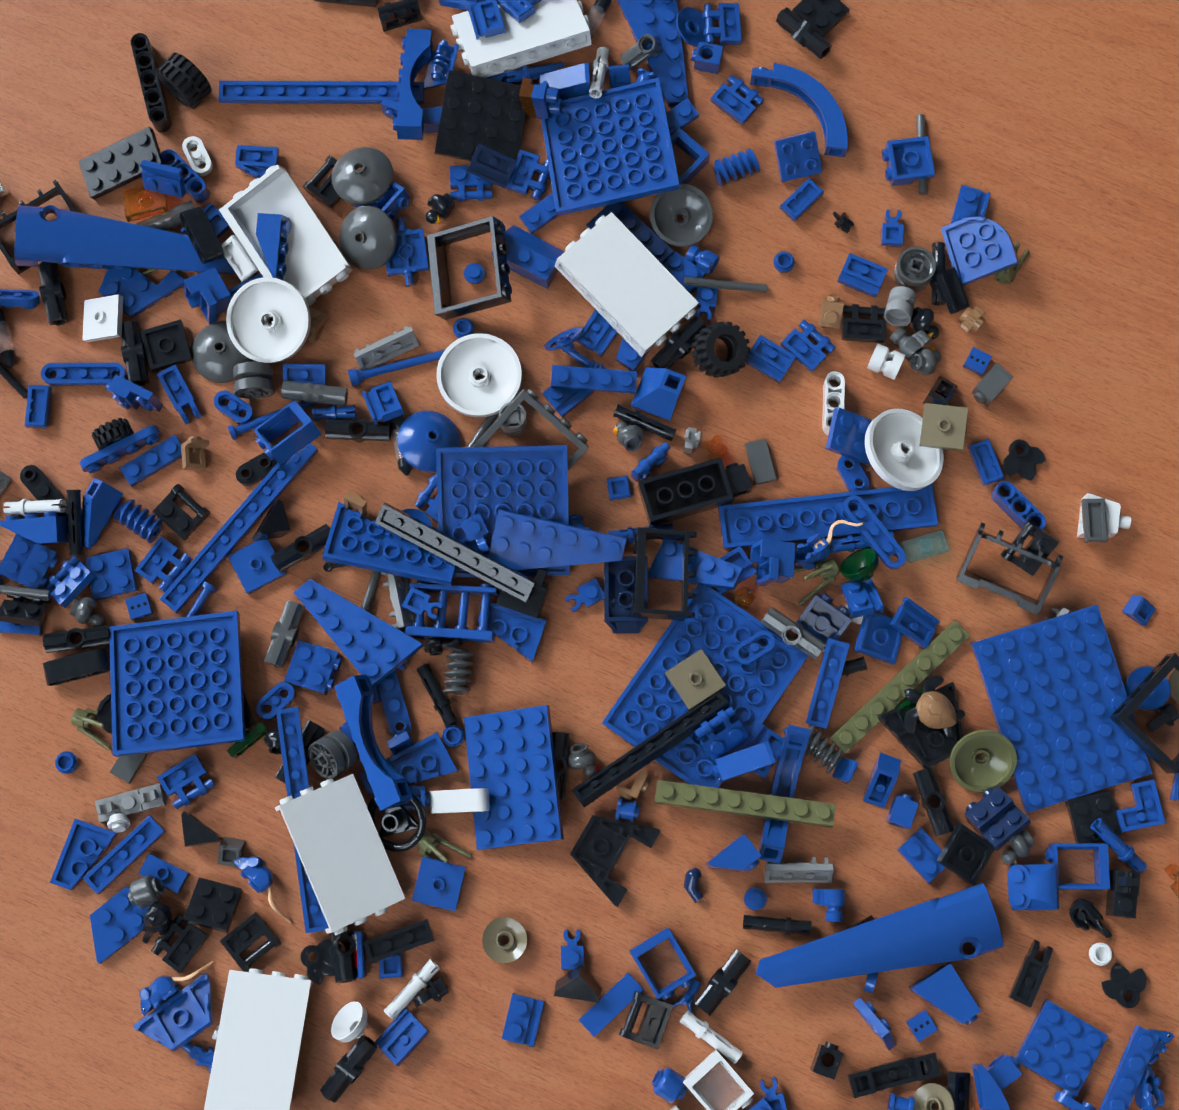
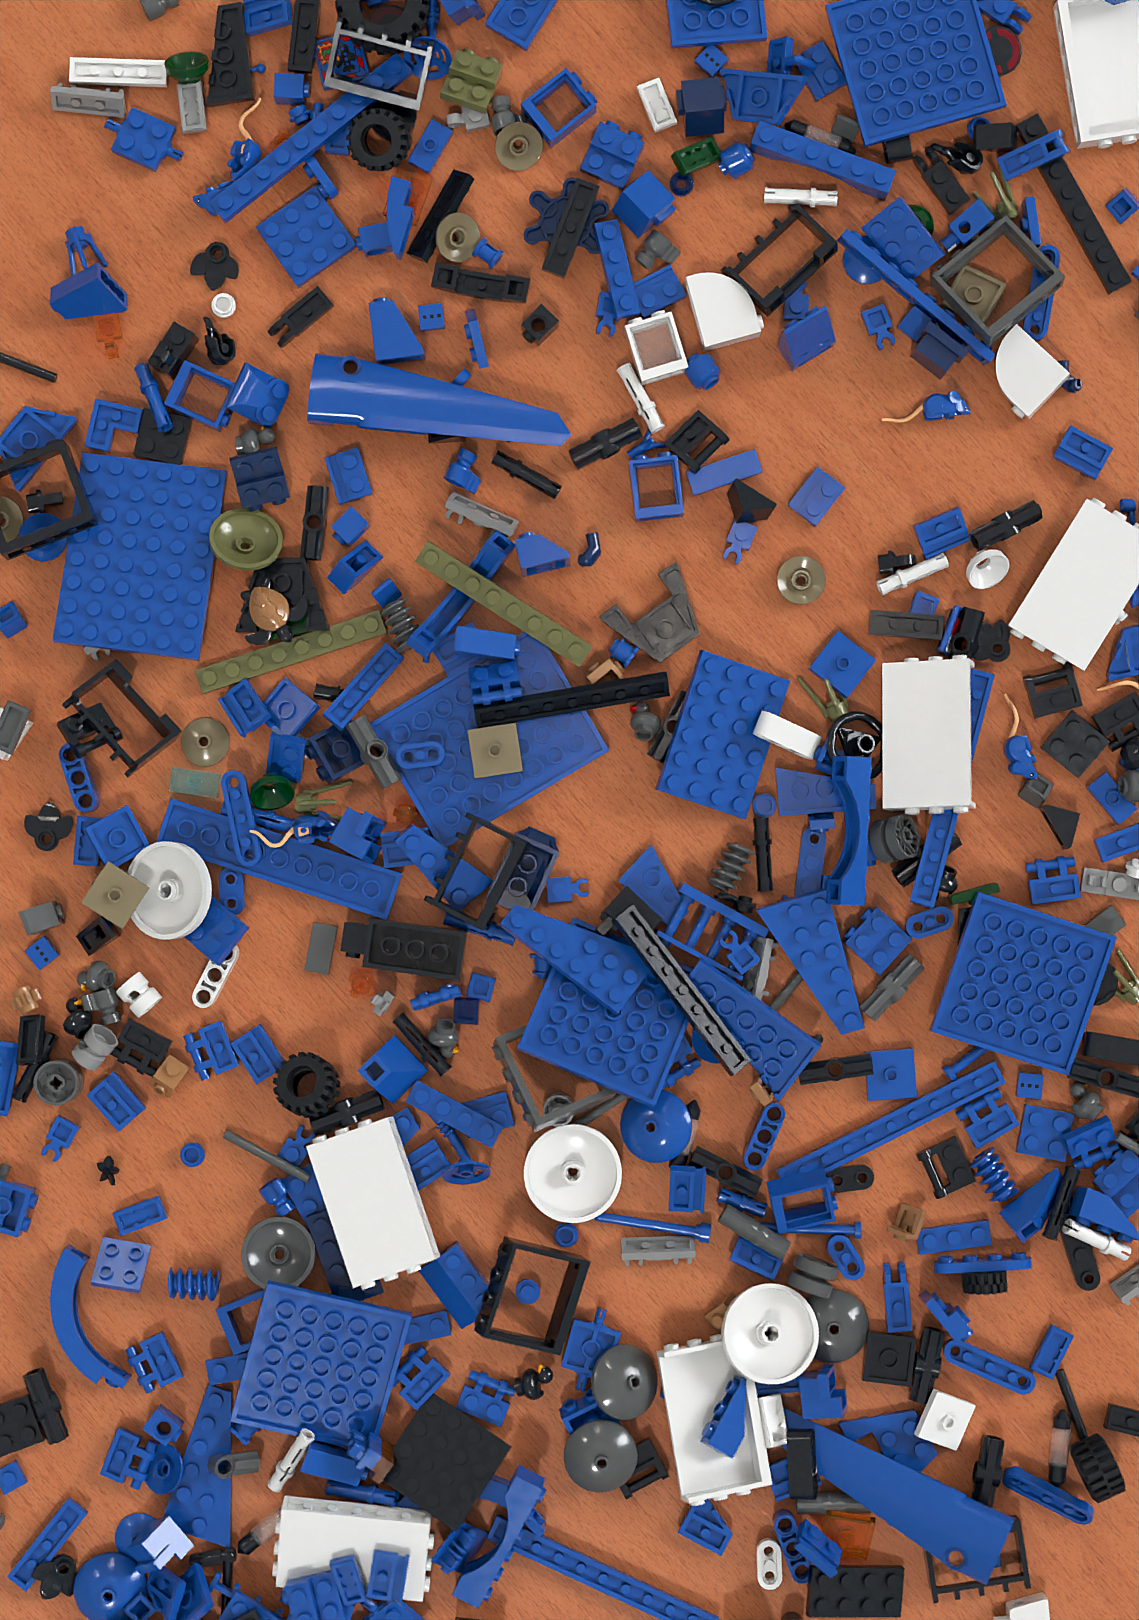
camera: 155 degrees left, 10 degrees up
(274, 523) = (855, 1110): black slope -> none
(335, 462) = (763, 1148): none -> blue beam
(475, 530) = (650, 1005): blue plate -> none
(491, 165) = (456, 1403): dark blue plate -> none
(619, 75) = (269, 1447): blue tile -> none
(621, 463) = (466, 1011): none -> clear blue plate
(755, 899) = (536, 509): blue plate -> none
(925, 590) = (217, 744): none -> dark tan dish
(965, 474) = (117, 836): none -> blue plate
(965, 854) = (308, 457): black plate -> none

